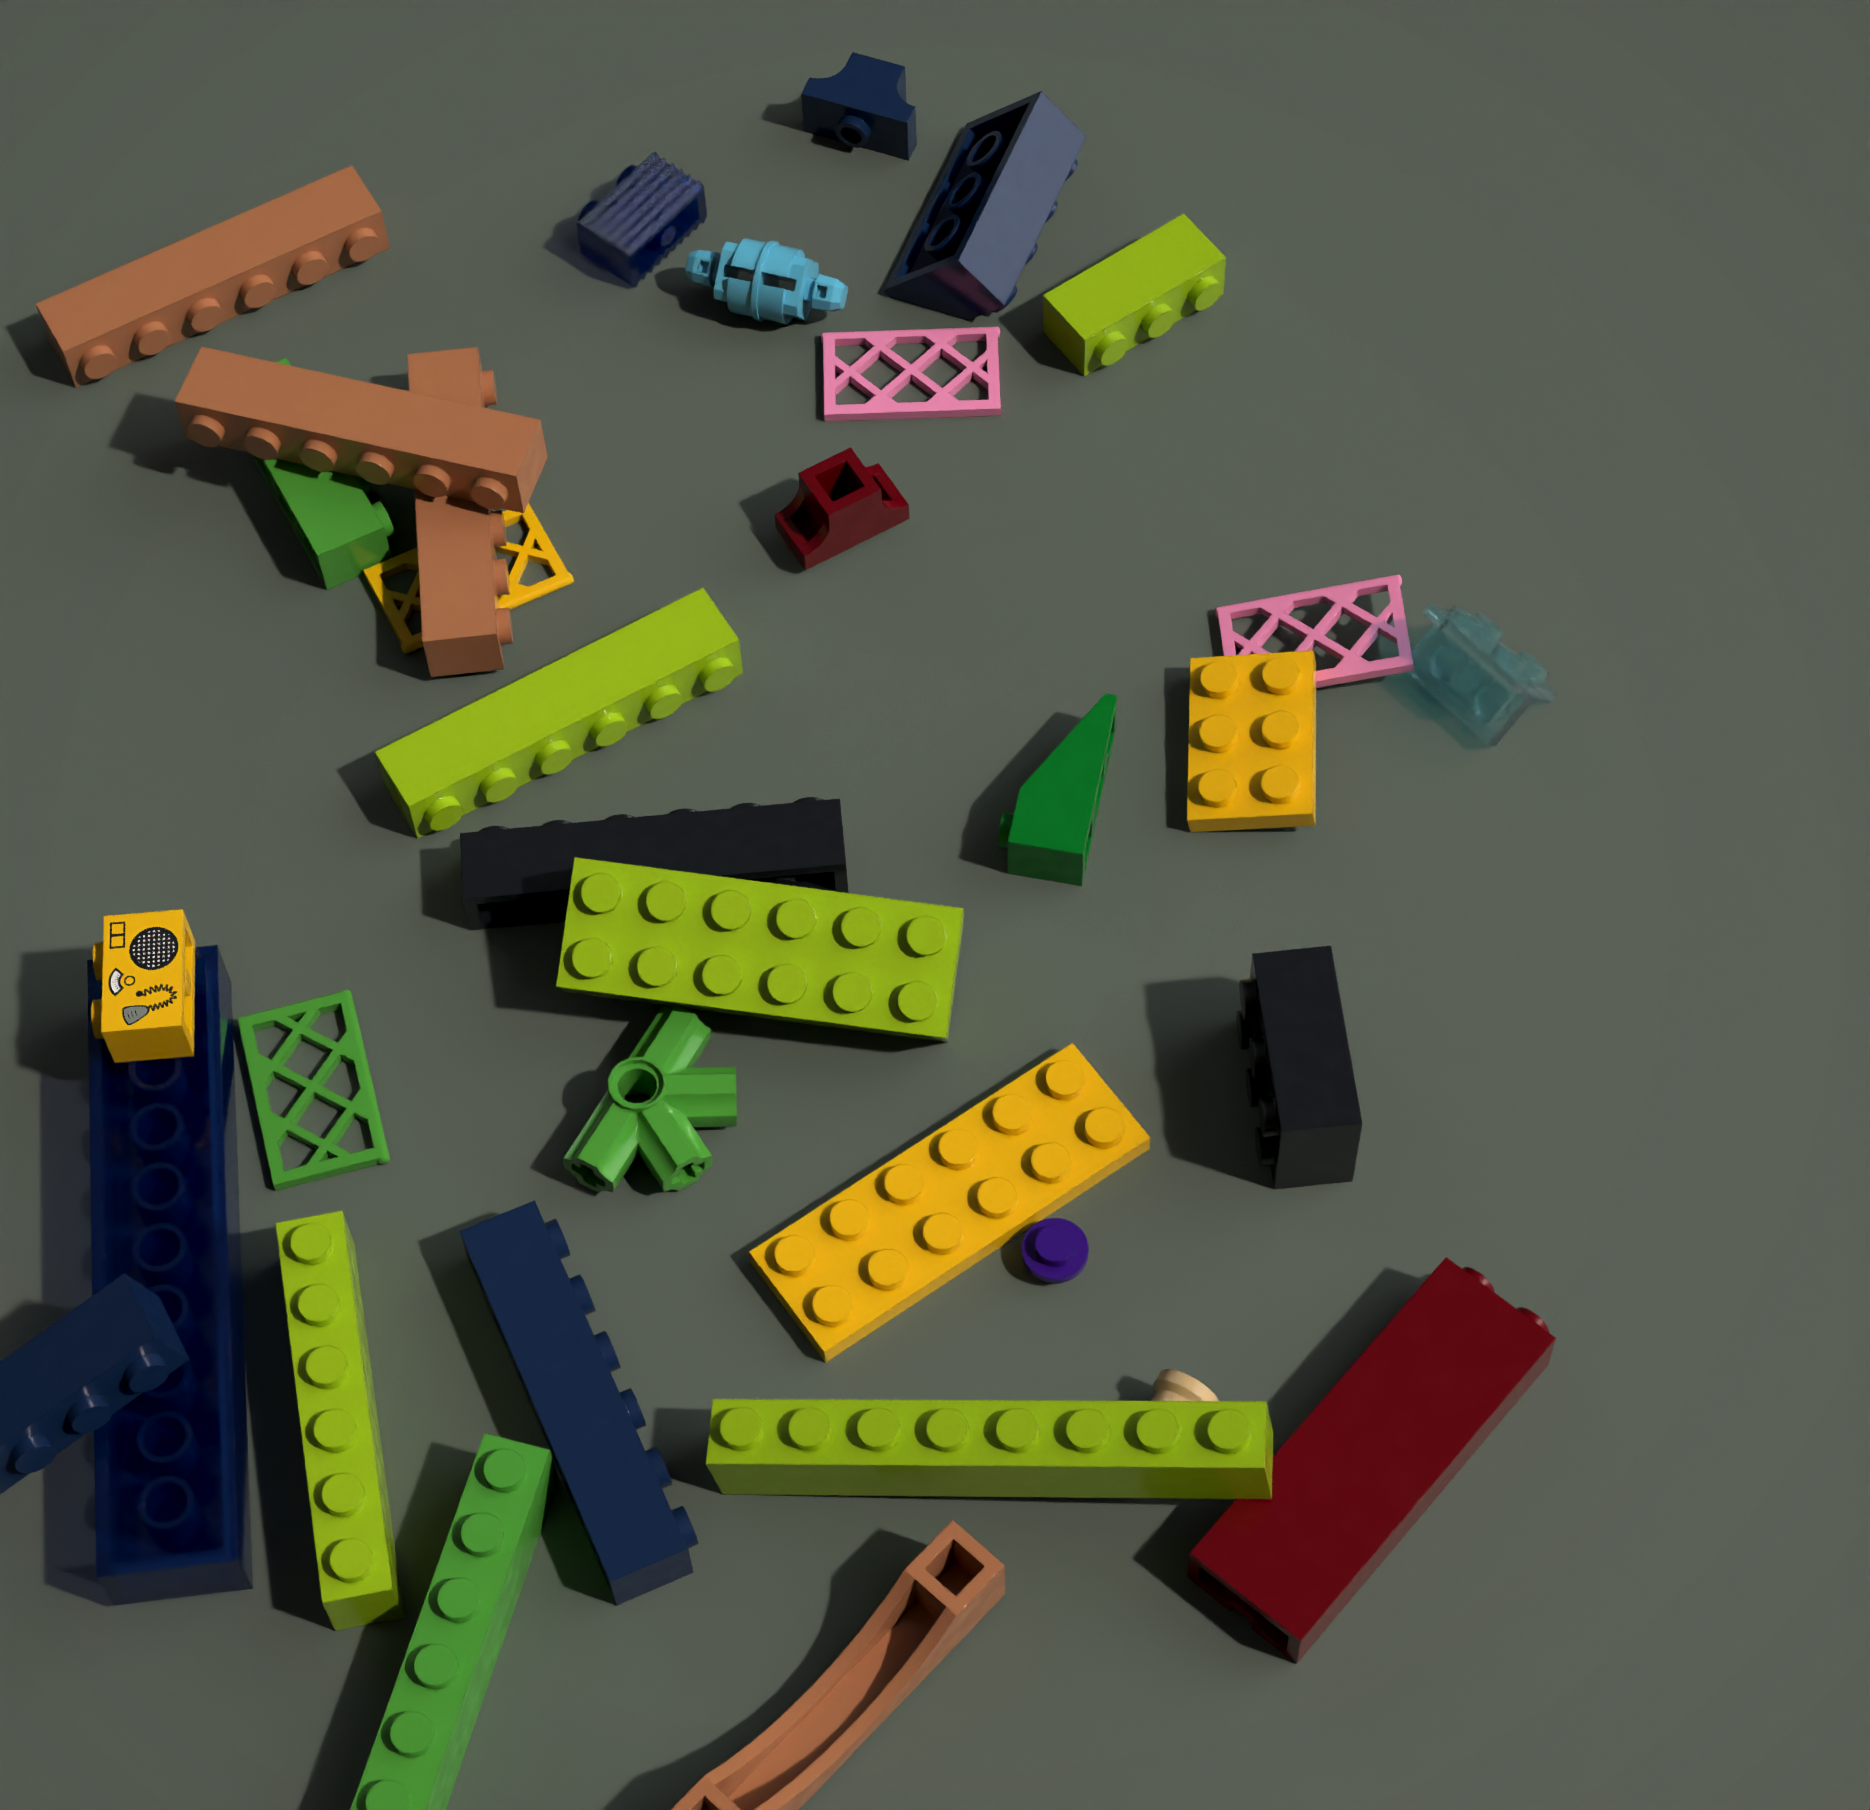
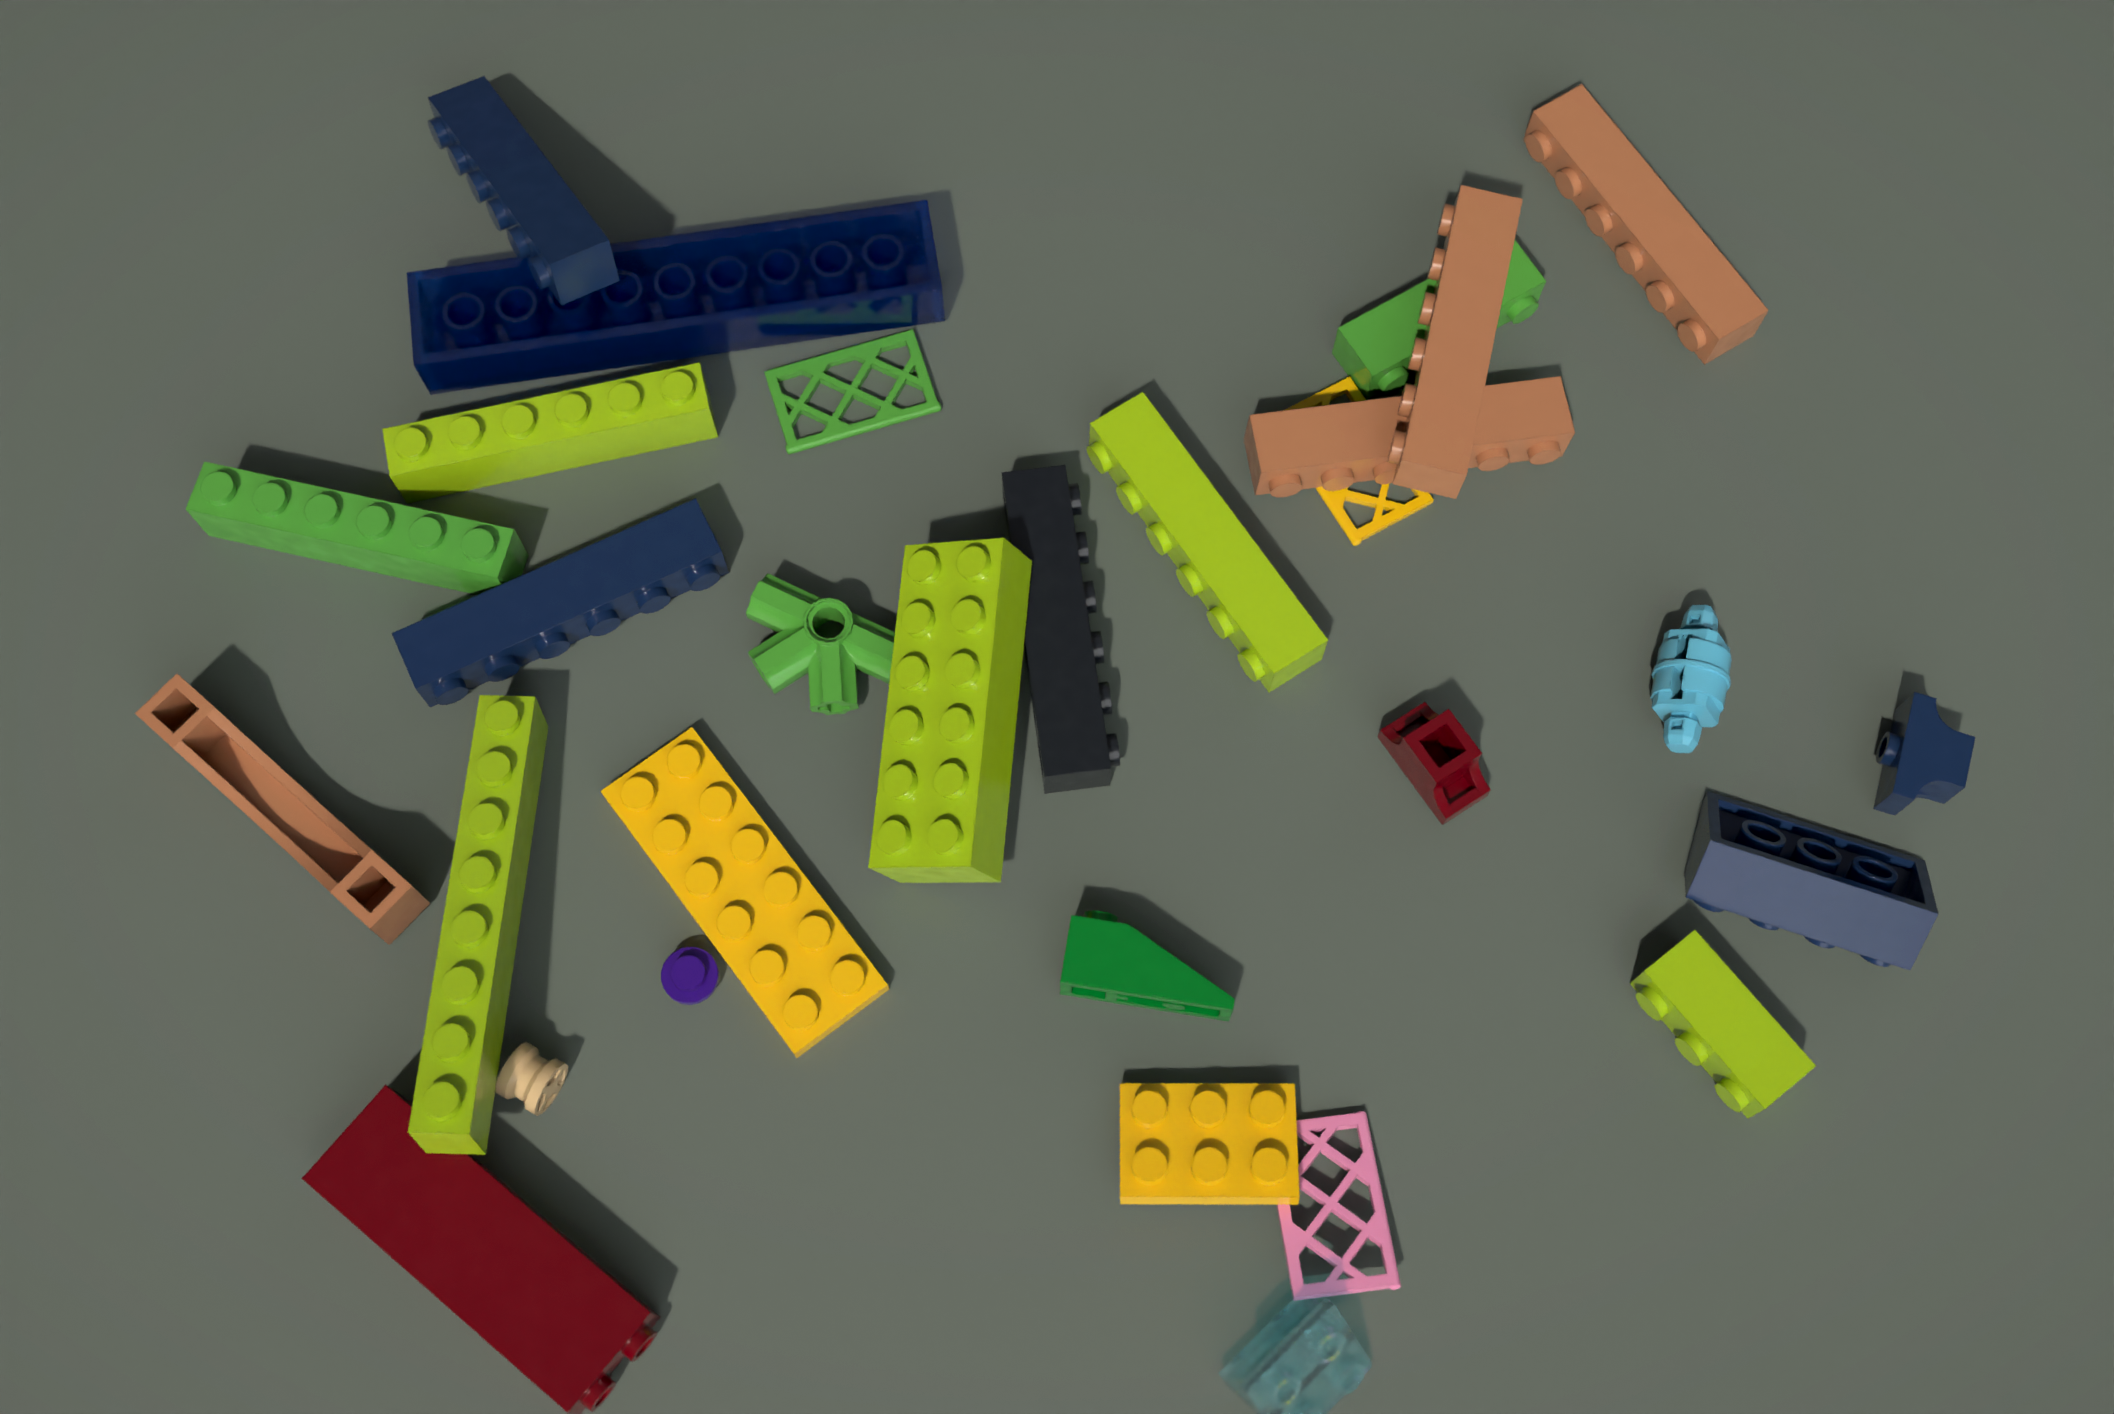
camera: 85 degrees right, 10 degrees up
(145, 986) = (887, 237): yellow brick -> none
(641, 218) = (1754, 565): clear blue brick -> none
(942, 403) = (1579, 850): bright pink window -> none
(1299, 1068) = (839, 1179): black brick -> none

